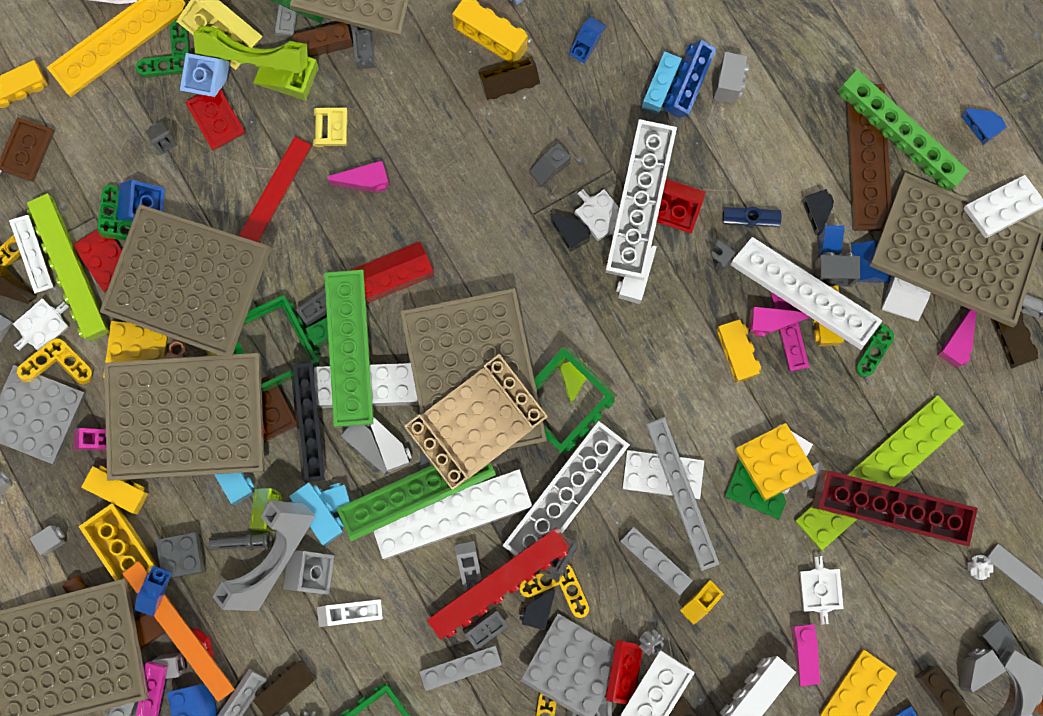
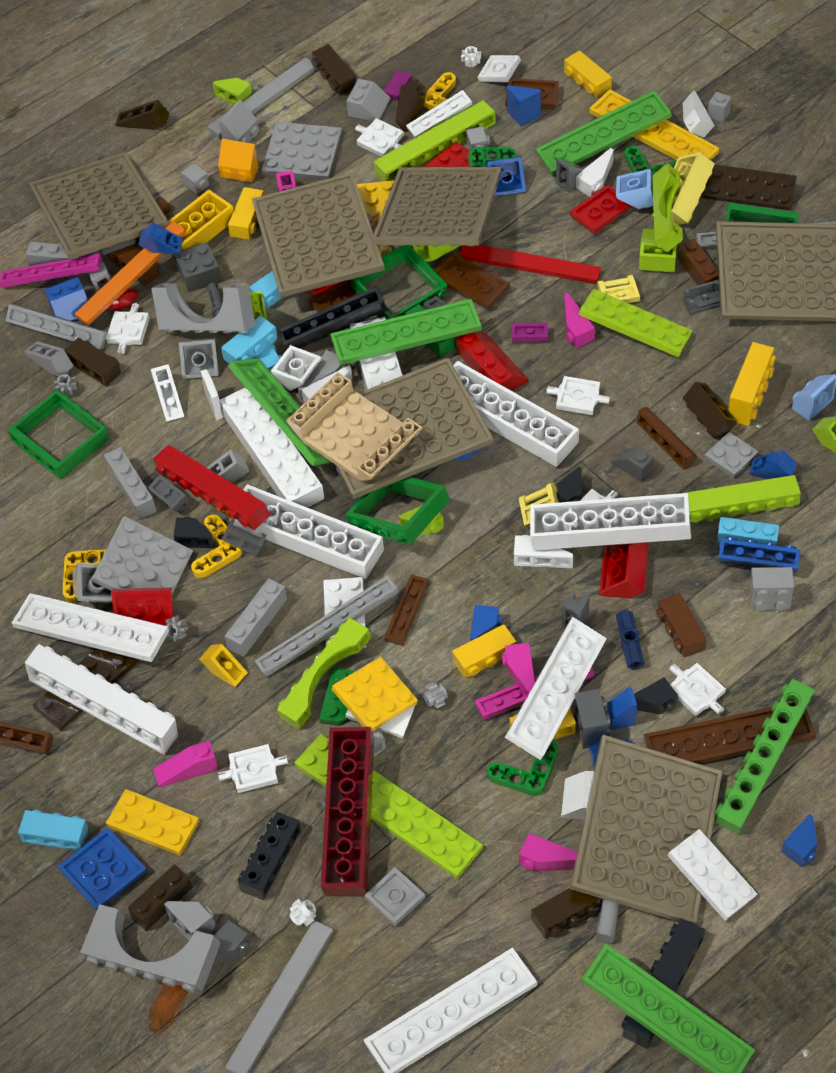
camera: 85 degrees right, 25 degrees down
(38, 488) = (237, 160): none -> light orange slope
(45, 162) = (523, 104): none -> blue slope
(57, 356) = (354, 153): yellow beam -> none
(80, 222) = (477, 138): none -> light grey brick
(112, 88) = (605, 131): none -> bright green plate
(169, 111) = (595, 175): none -> white slope
(244, 644) = (128, 328): none -> white plate
(283, 267) = (472, 281): none -> reddish brown plate
(358, 470) = (295, 367): none -> white slope
(362, 226) = (529, 332): none -> magenta plate
(370, 565) = (211, 394): none -> white tile
(381, 120) = (635, 322): none -> lime plate
(455, 197) = (578, 395): none -> white plate
(473, 262) = (519, 418): none -> white brick
(528, 128) = (665, 438): none -> reddish brown brick
(560, 73) = (731, 455): none -> light grey plate
(591, 266) = (525, 501): none -> light yellow plate
(617, 97) = (743, 498): none -> lime brick
(673, 415) = (406, 610): none -> reddish brown tile
(708, 345) = (484, 620): none -> blue slope
(708, 475) = (347, 642): none -> lime arch
(745, 168) = (681, 625): none -> reddish brown brick
(777, 406) = (435, 695): none -> light grey gear
(815, 172) = (697, 689): none -> white plate
(916, 588) = (269, 856): none -> black brick
(975, 482) = (394, 896): none -> light grey plate

